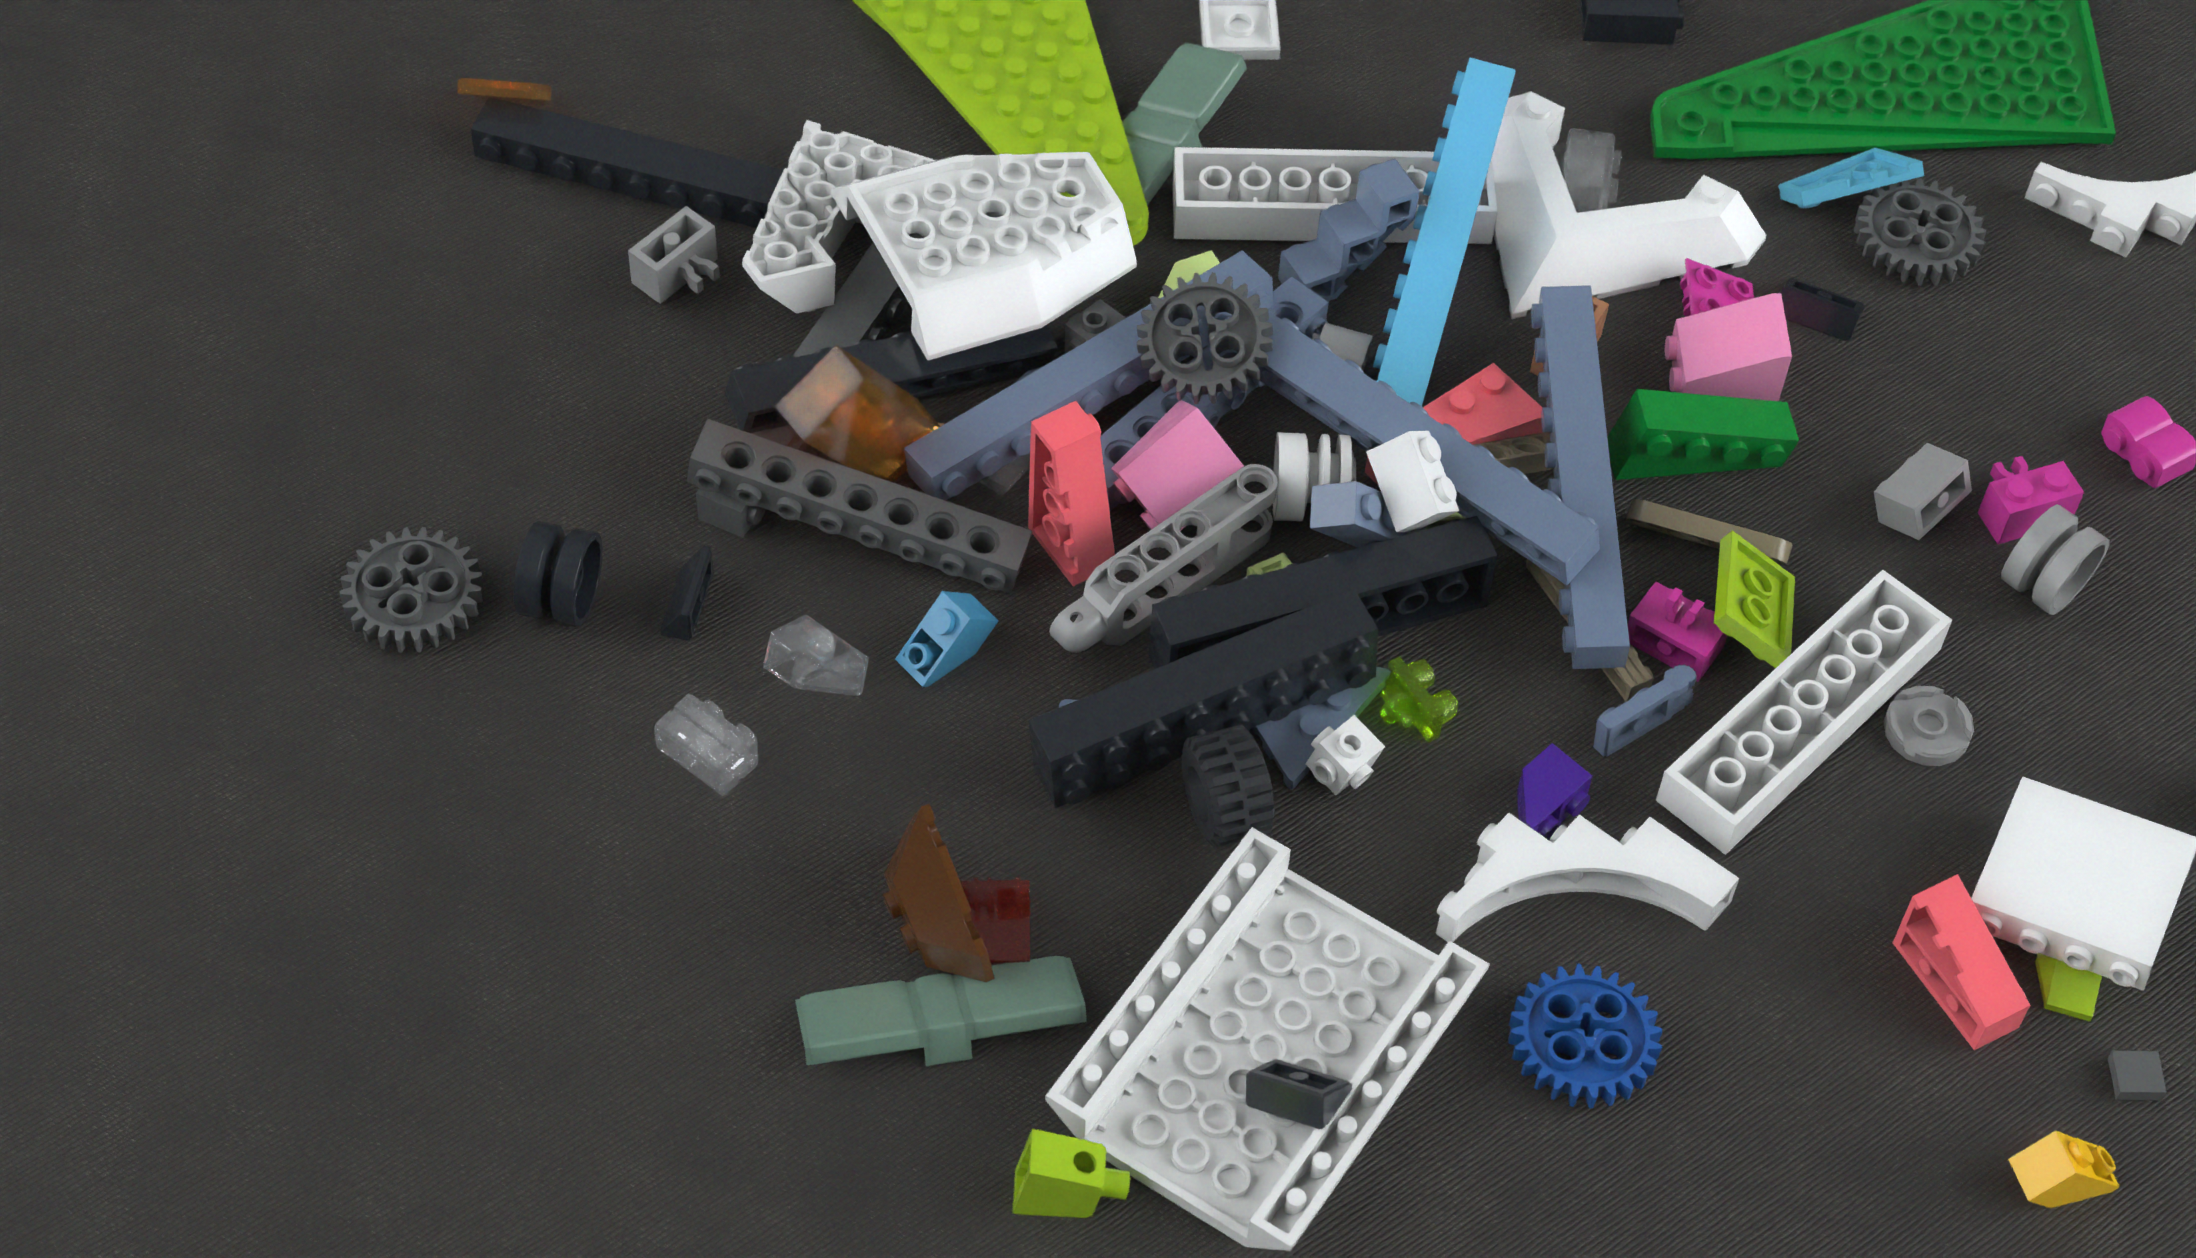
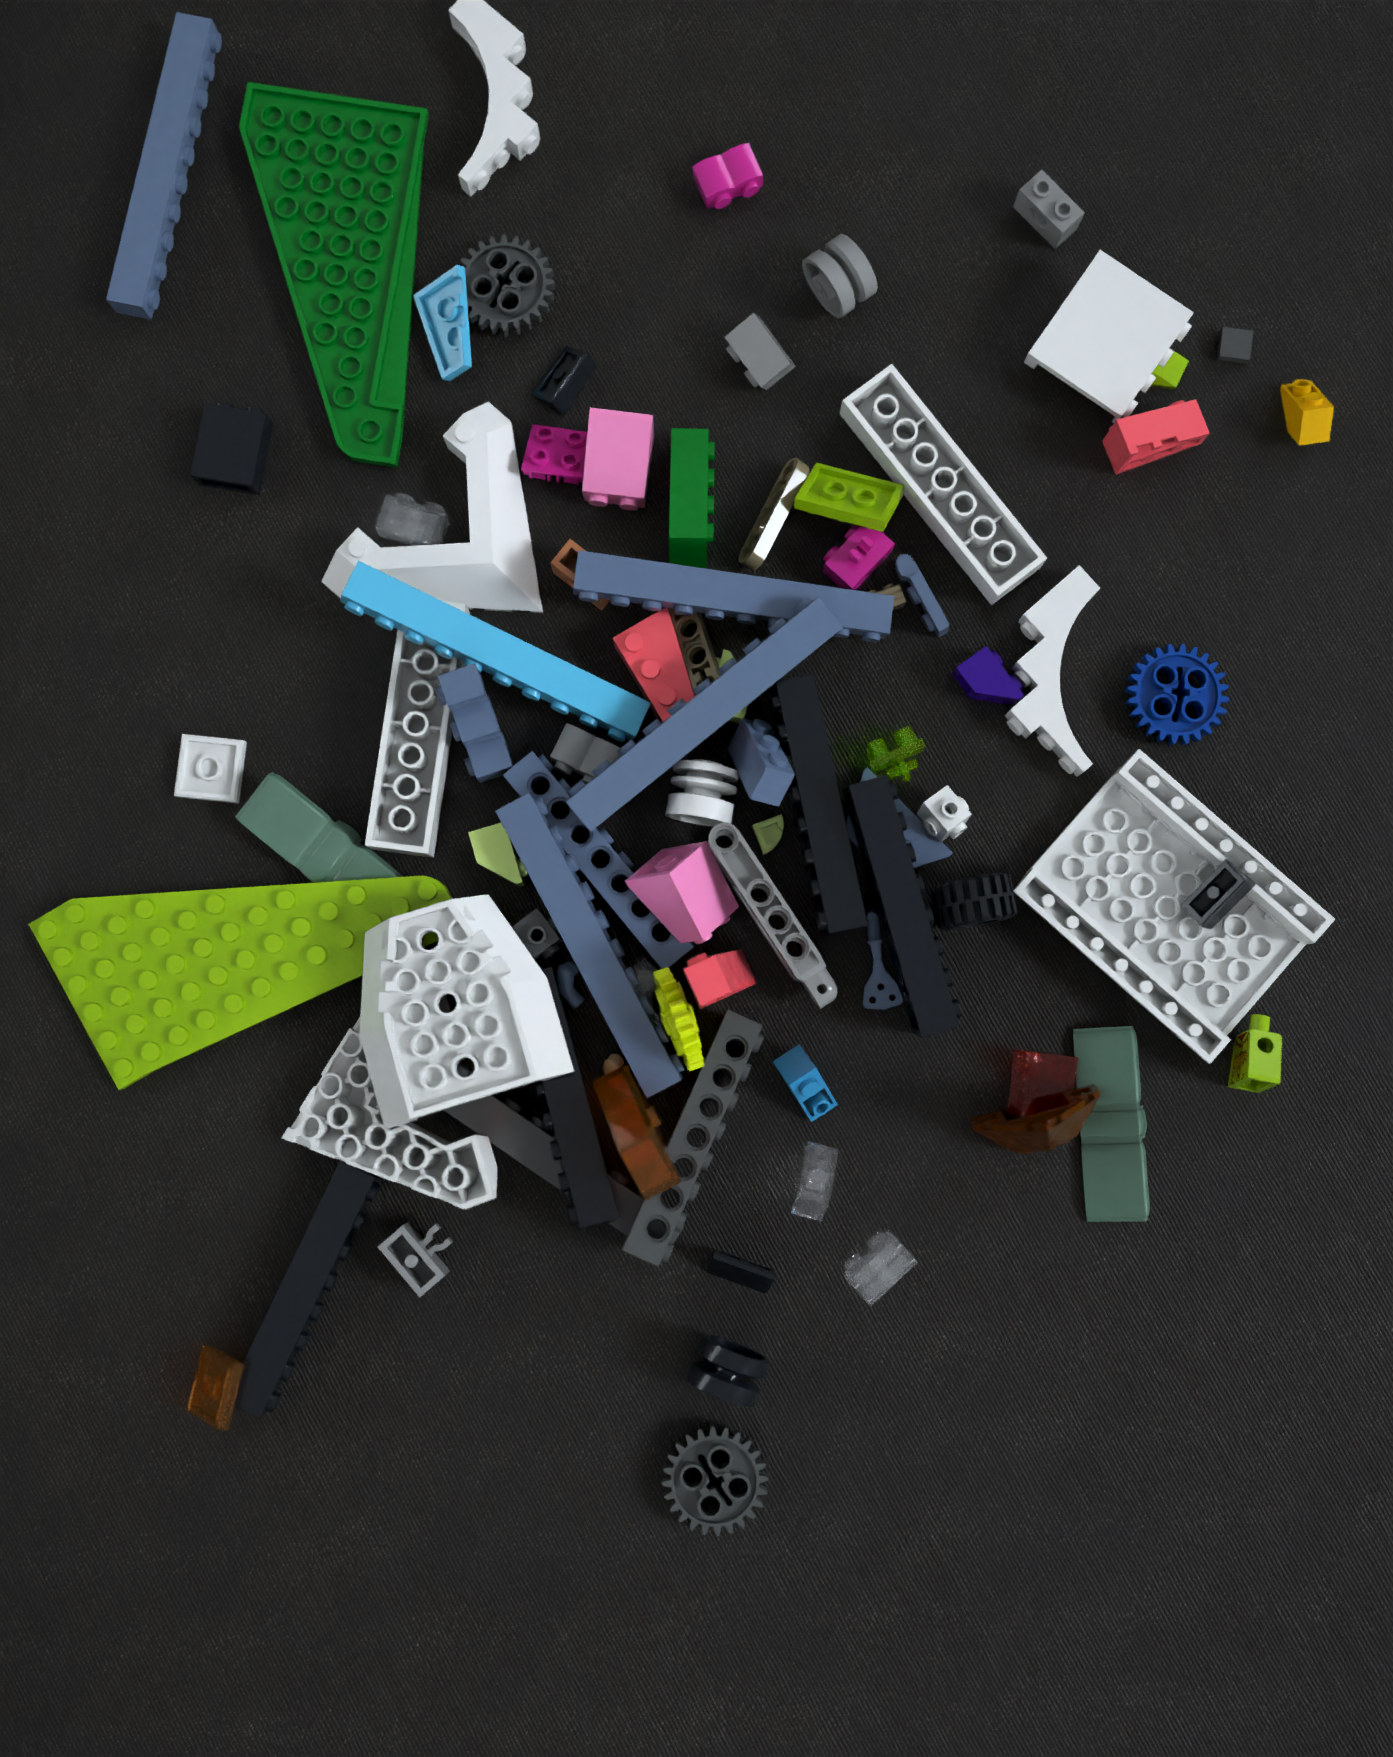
camera: 80 degrees left, 30 degrees up
(994, 469) = (678, 1019): none -> neon yellow gear
(1243, 332) = (591, 826): dark grey gear -> none
(1413, 480) = (756, 723): white brick -> none
(1928, 726) = (952, 401): light grey tile -> none
(2020, 499) = (772, 278): dark pink brick -> none

